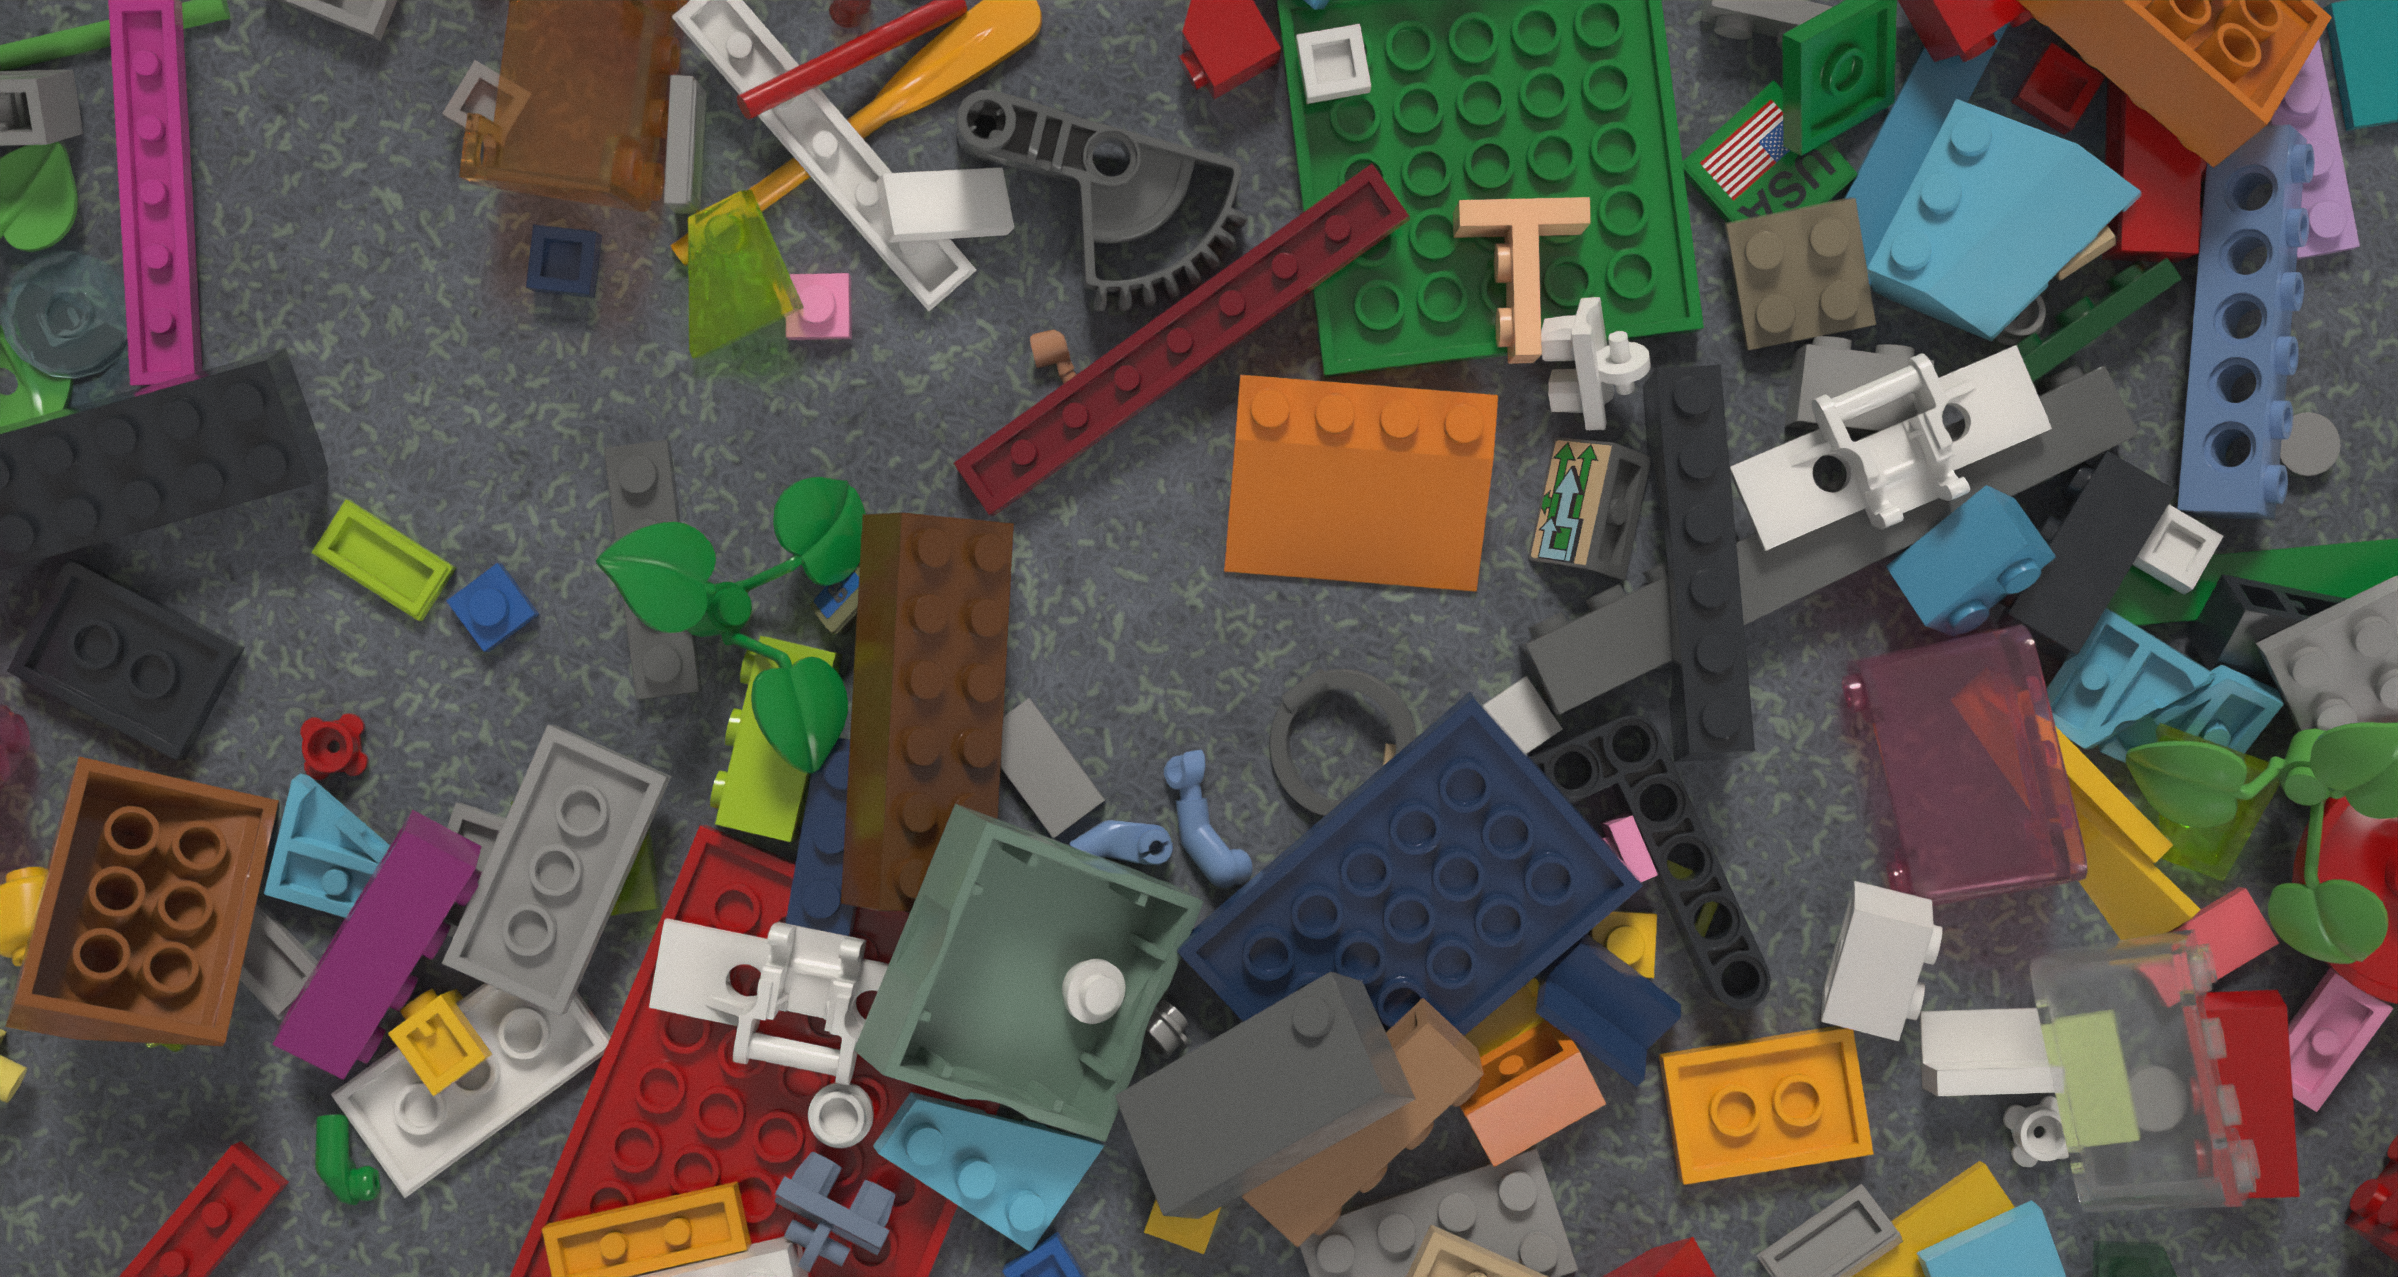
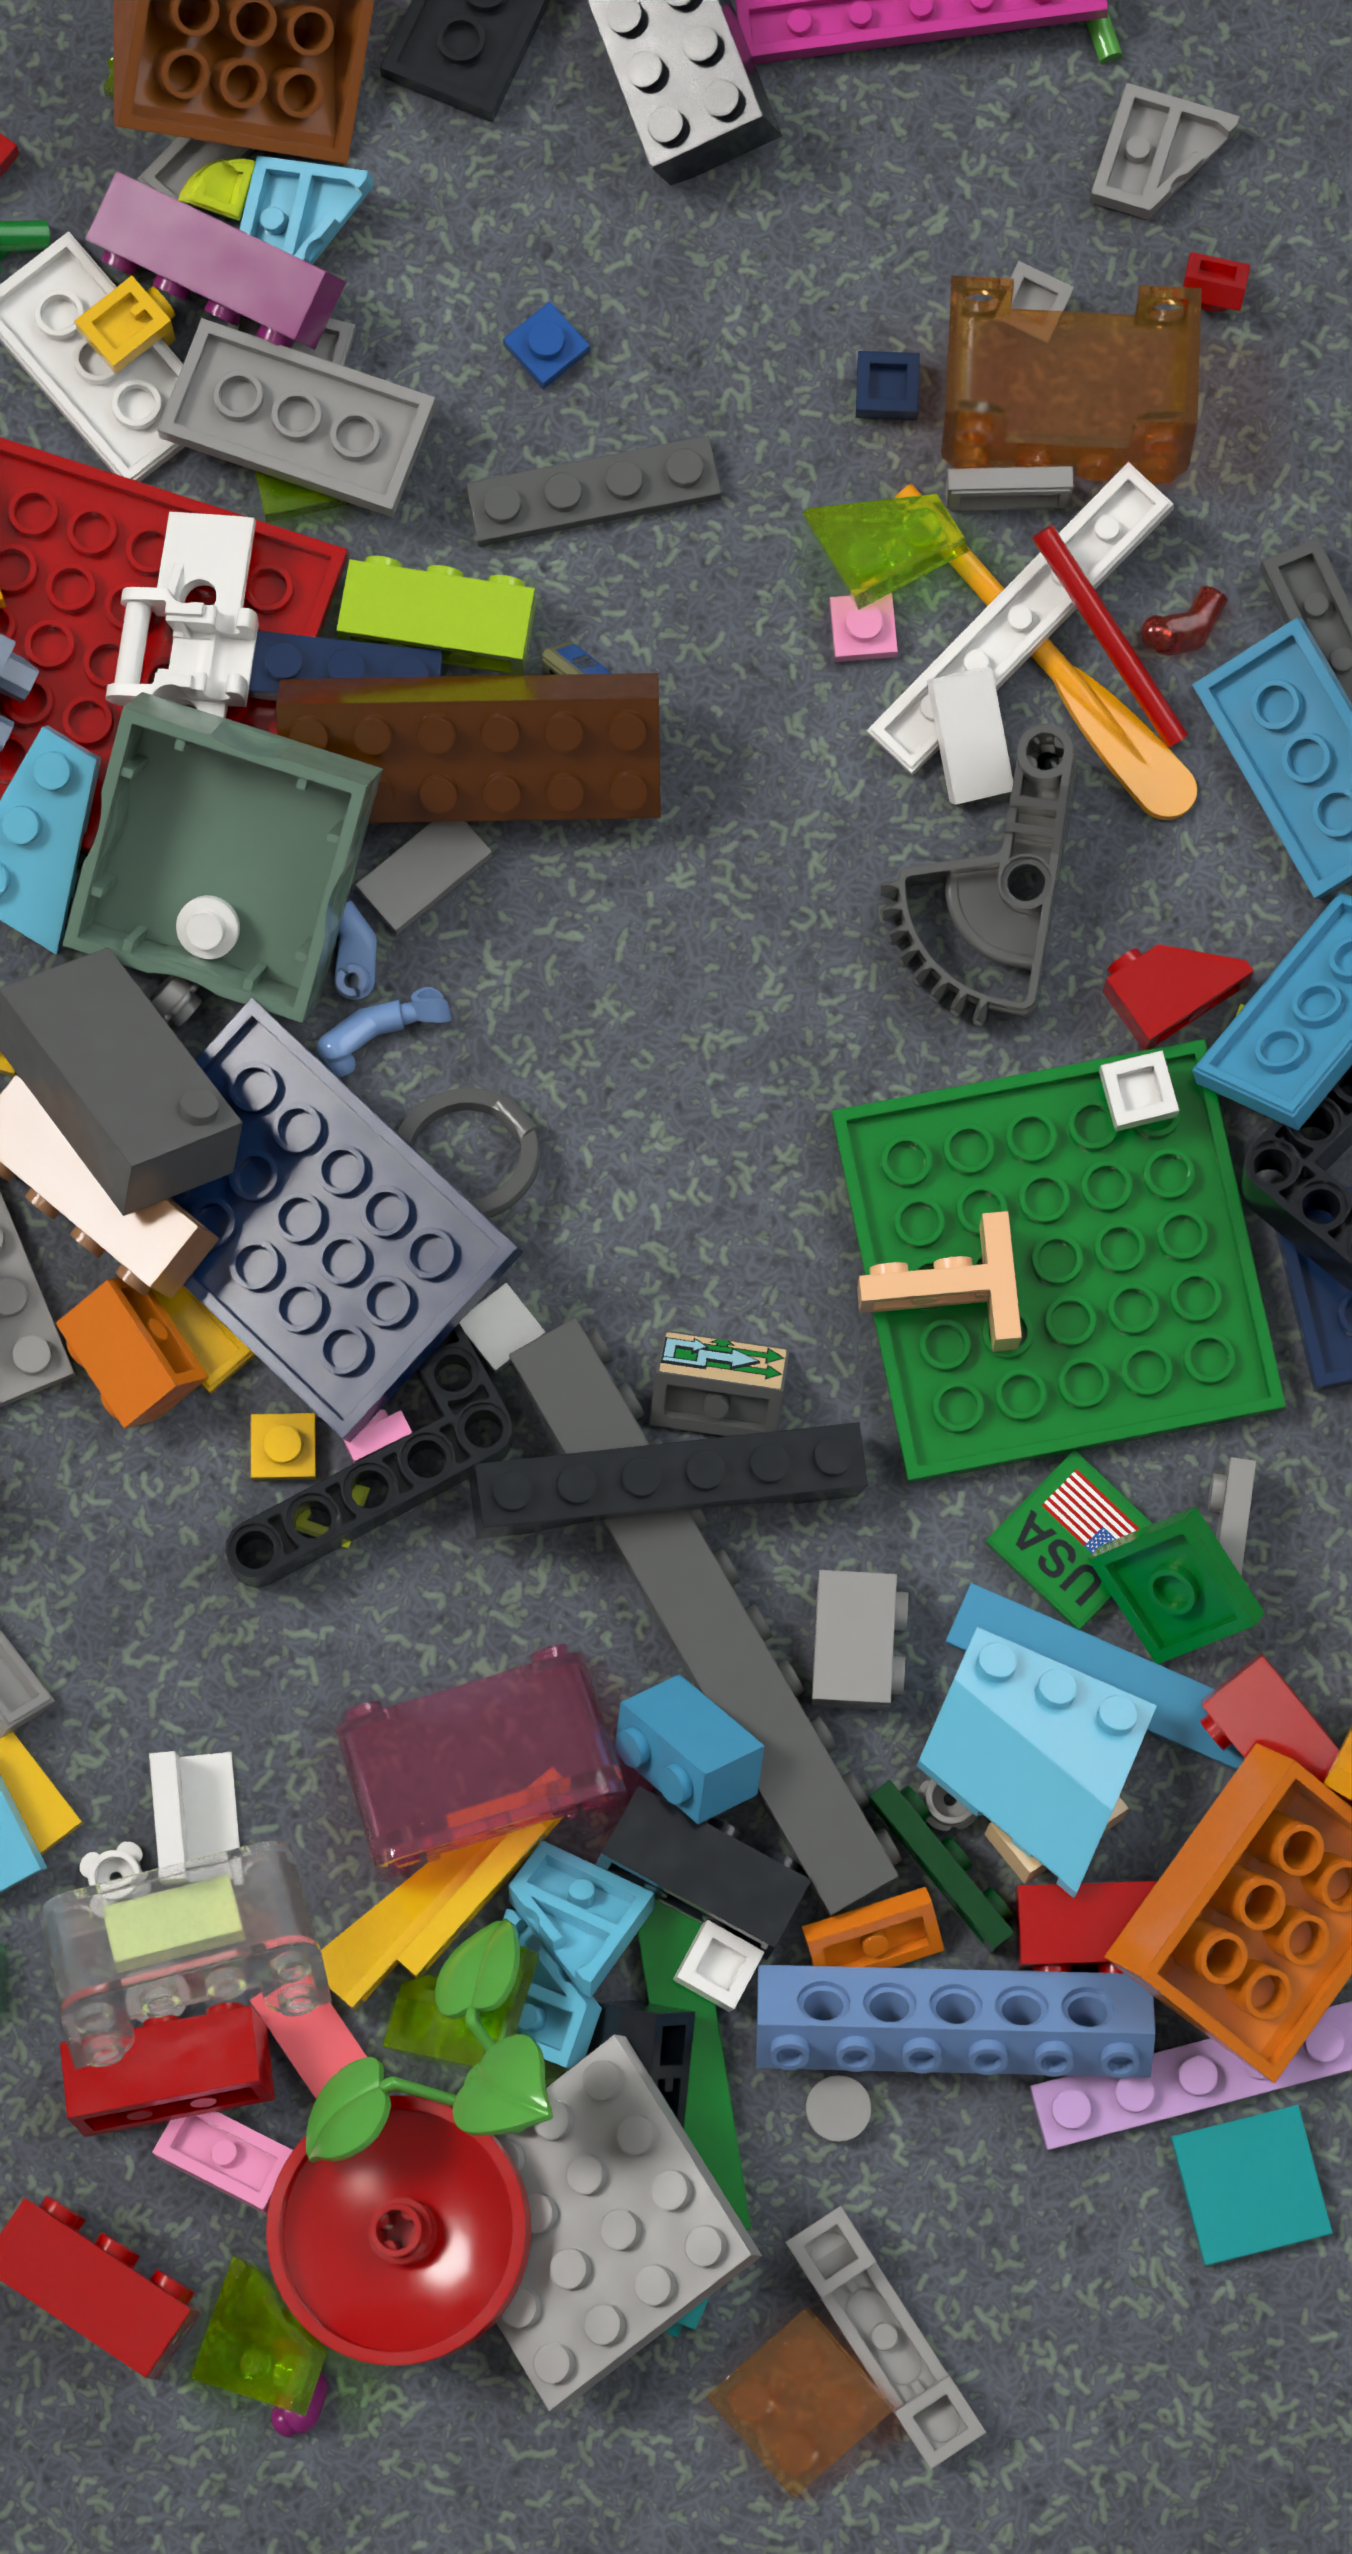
camera: 90 degrees right, 10 degrees down
(294, 934) = (220, 187): none -> neon yellow tile
(316, 741) = (398, 193): red plate -> none
(384, 560) = (585, 242): lime tile -> none
(666, 585) = (571, 487): green plant -> none
(840, 1115) = (75, 697): white plate -> none
(1051, 349) = (838, 847): nougat hand -> none
(1182, 340) = (854, 969): dark red plate -> none
(1360, 482) = (726, 1153): orange slope -> none
(1597, 365) = (861, 1367): white hips -> none
(1605, 1006) = (219, 1423): dark blue panel -> none
(1765, 1104) = (130, 1596): light orange plate -> none
(1800, 273) = (970, 1572): dark tan plate -> none
(1879, 961) = (281, 1686): white brick -> none
(1896, 465) = (779, 1664): white piece -> none
(2058, 89) = (1174, 1820): red plate -> none
(2144, 378) = (877, 1934): none -> orange plate

